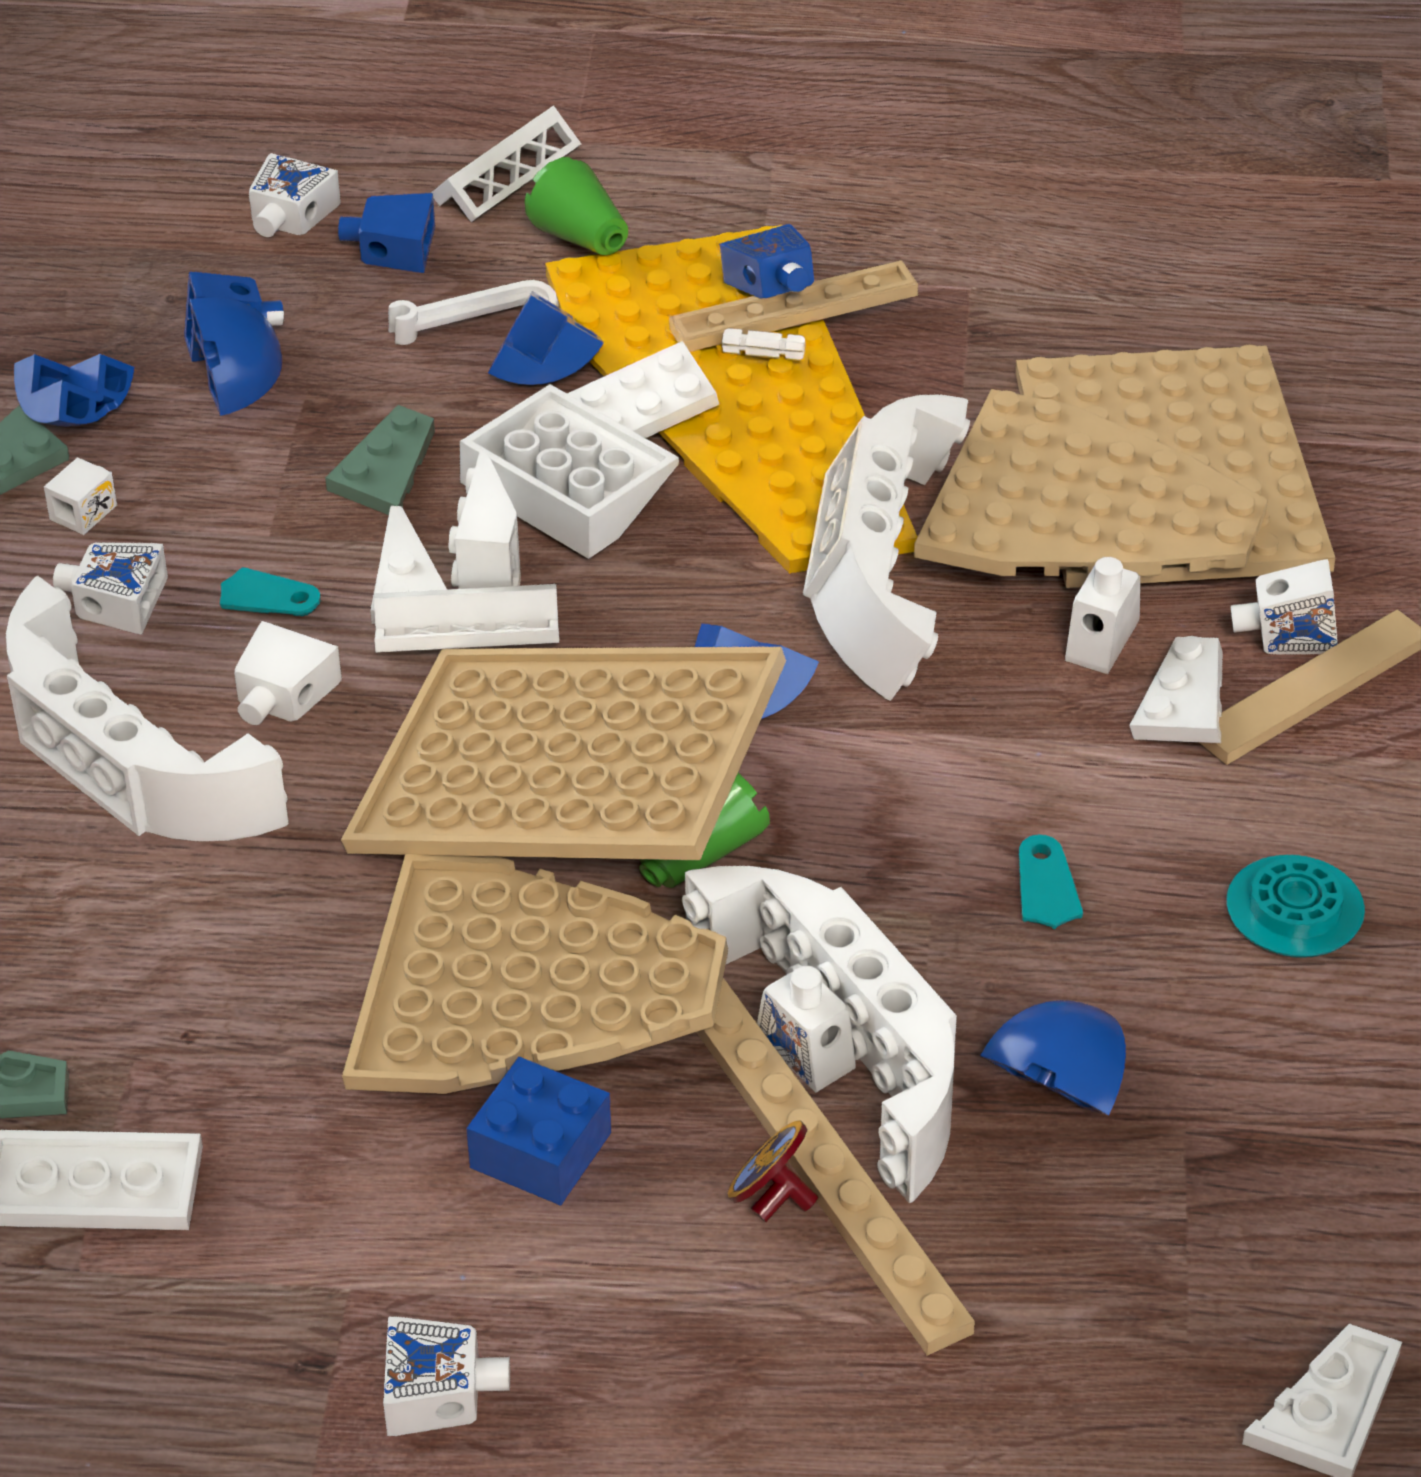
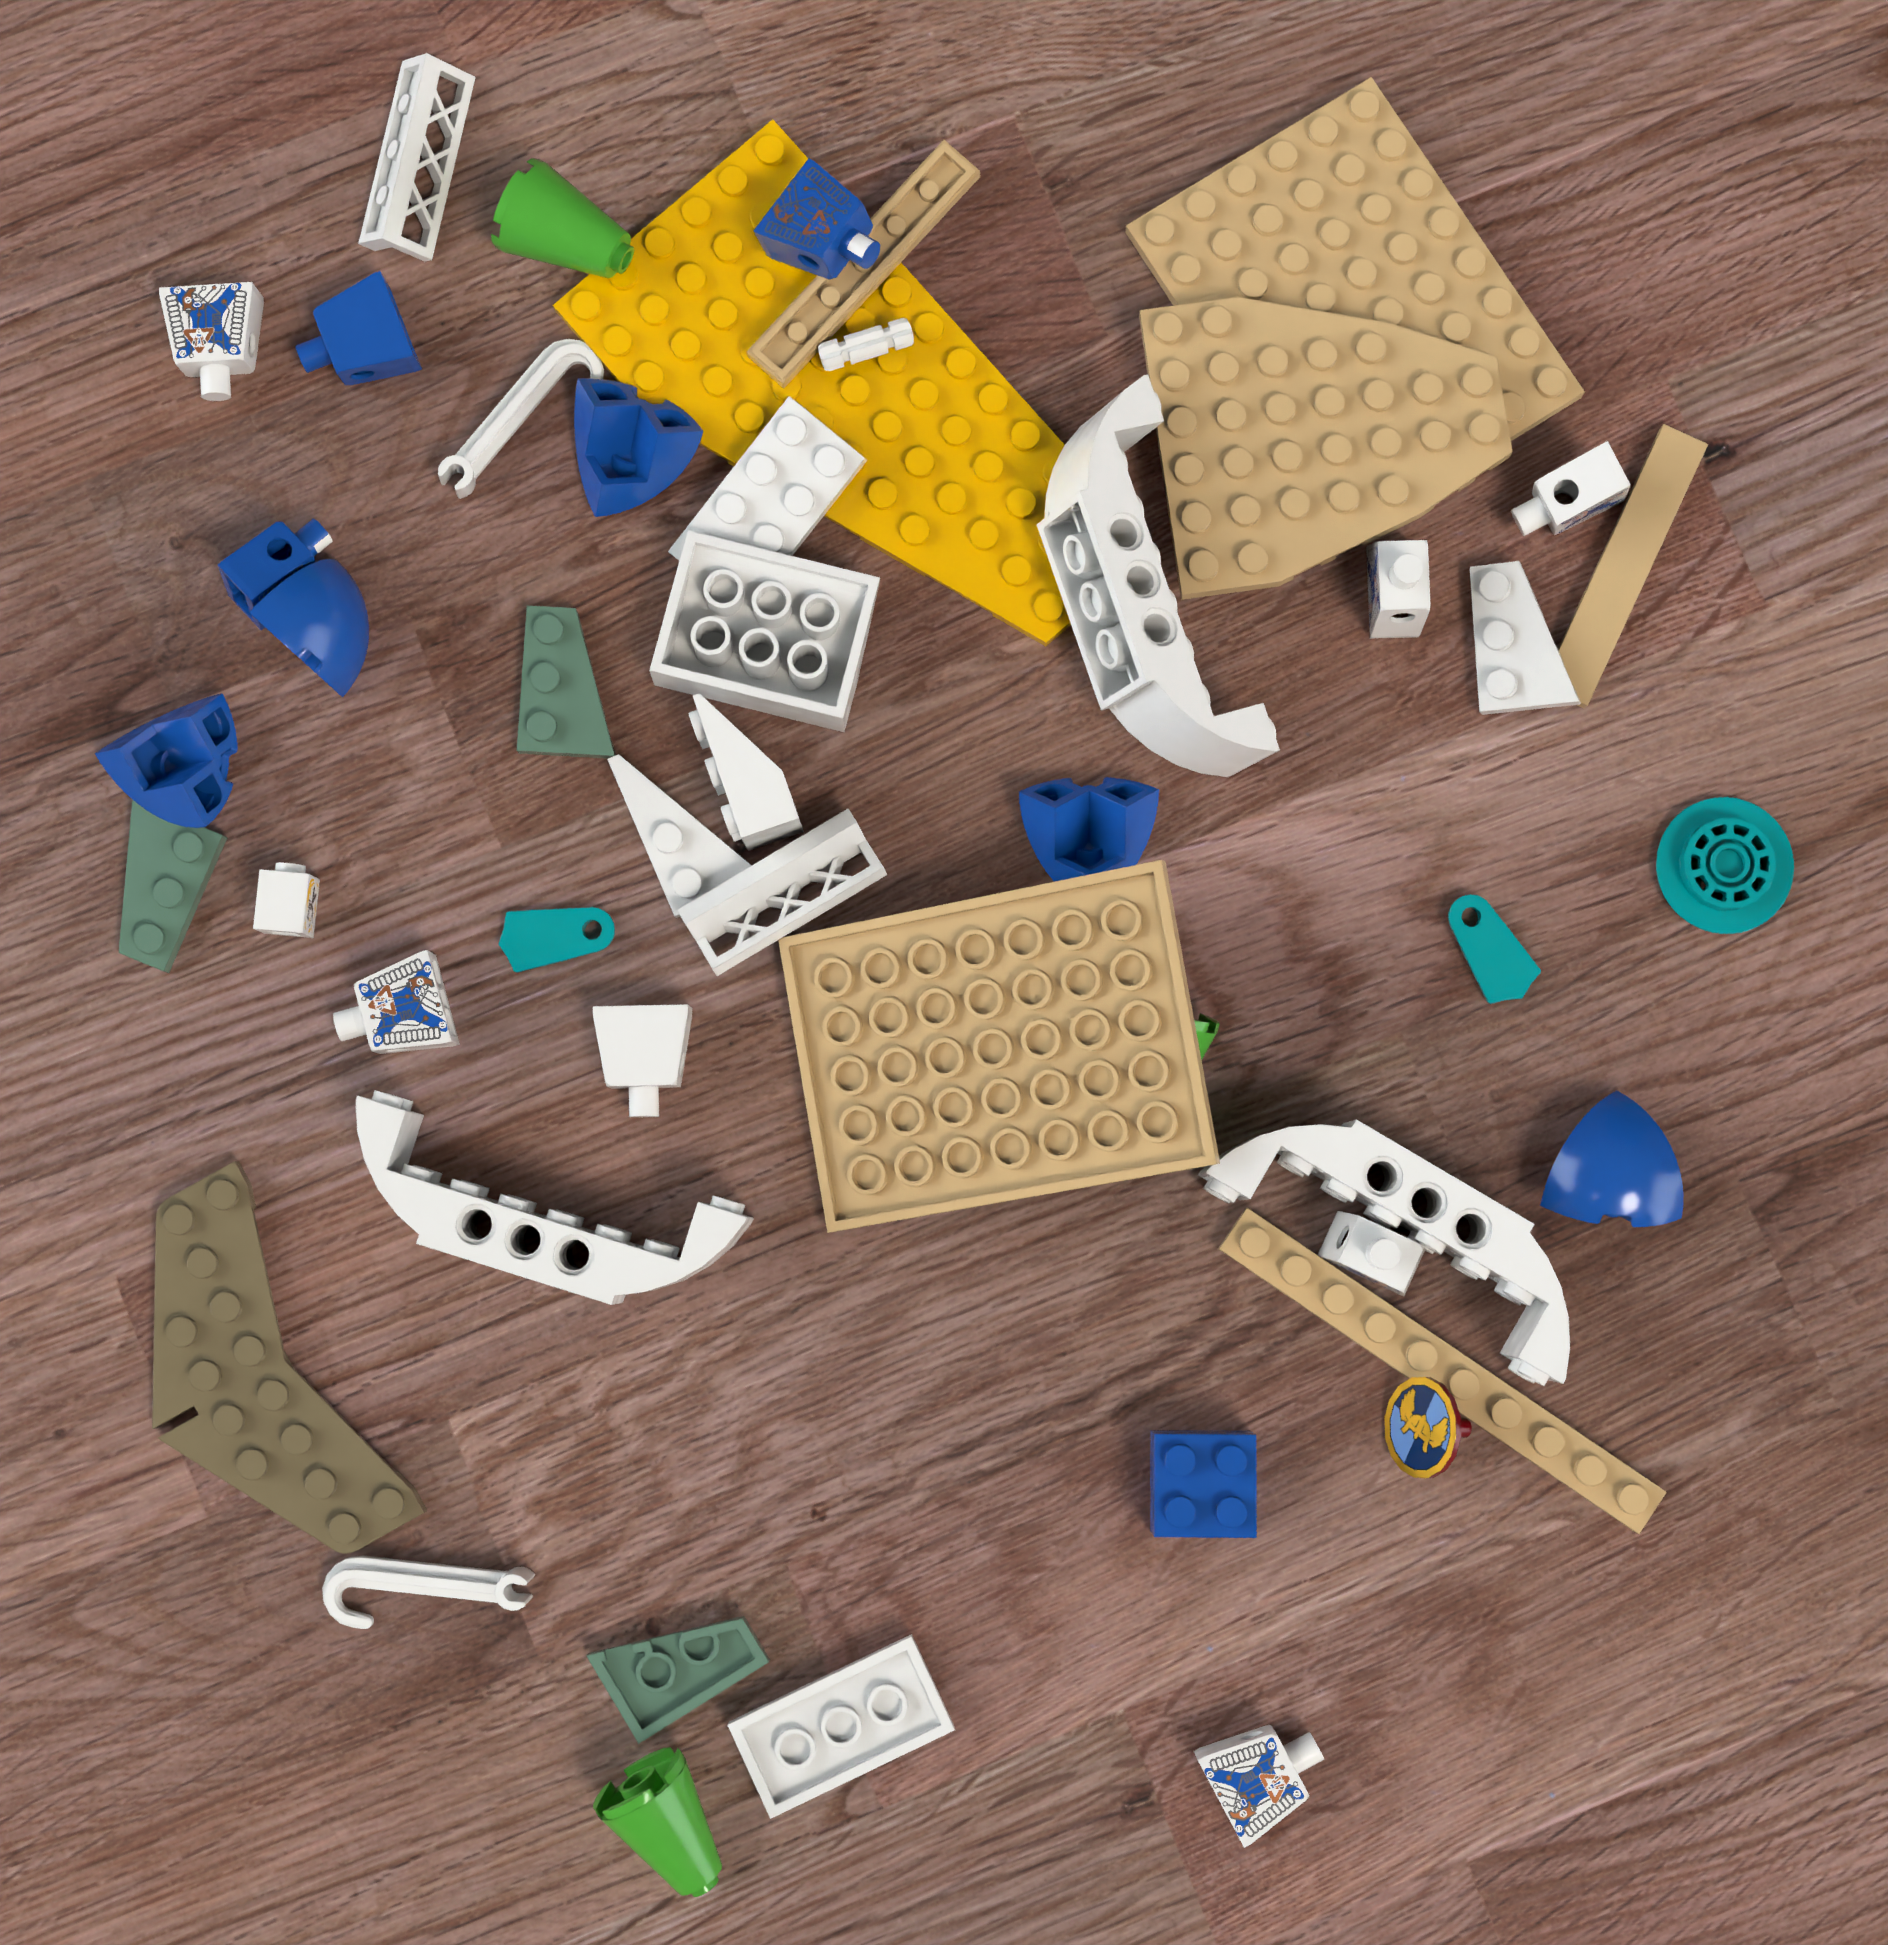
camera: 25 degrees left, 40 degrees up
(525, 967) = (1091, 1319): tan wing -> none

